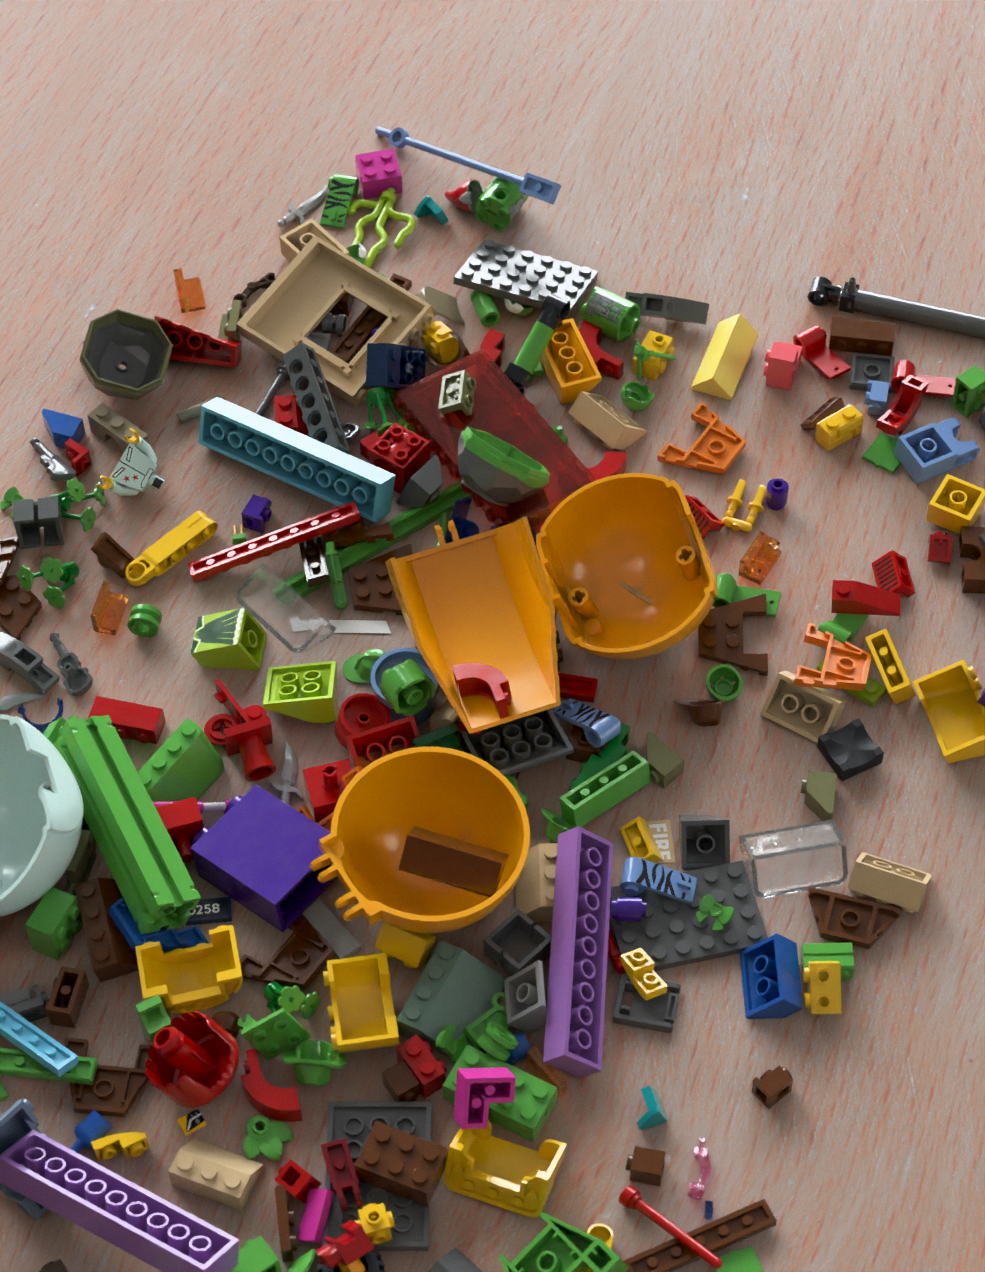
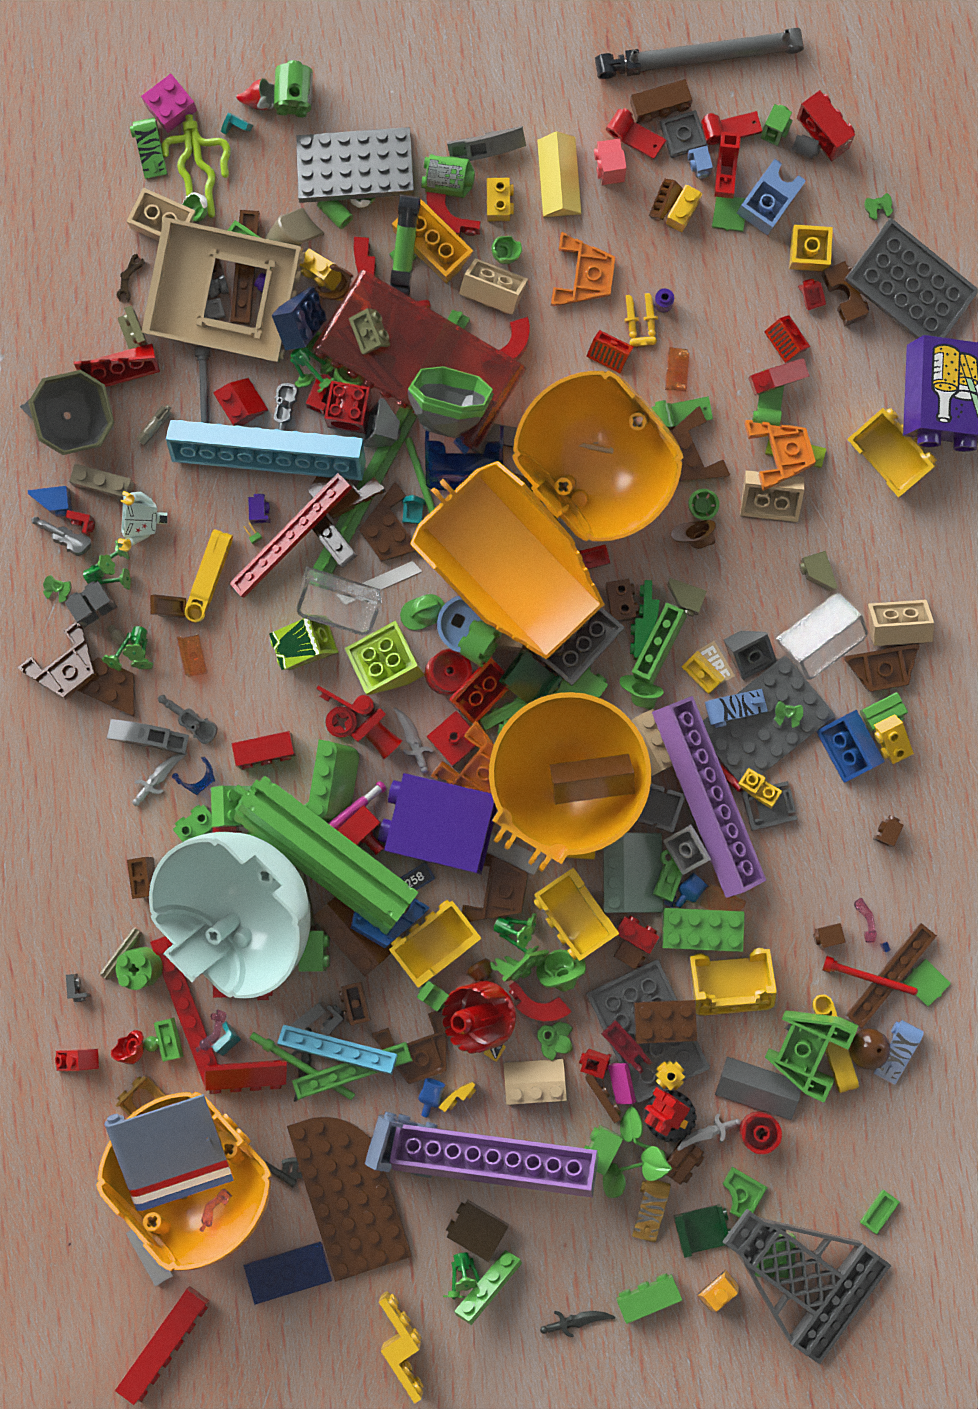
camera: 20 degrees left, 30 degrees up
(144, 620) = (227, 654): bright green wheel -> none
(189, 292) = (75, 306): clear orange panel -> none
(303, 208) = (122, 167): light grey piece -> none
(314, 397) = (250, 375): dark grey brick -> none
(336, 578) = (355, 543): bright green piece -> none
(451, 1046) = (654, 911): bright green piece -> none
(476, 1090) = (698, 949): dark pink brick -> none
(484, 681) = (531, 607): arch -> none
(497, 1041) = (686, 896): bright green wheel -> none
(529, 185) = (320, 74): medium blue bar -> none
(597, 725) = (629, 594): medium blue door -> none
(628, 909) = (726, 741): dark purple brick -> none
(643, 355) = (496, 210): bright green plant -> none
(656, 1114) = (814, 888): teal tile -> none
(850, 750) = (823, 520): black brick -> none
(890, 666) = (823, 430): yellow brick -> none

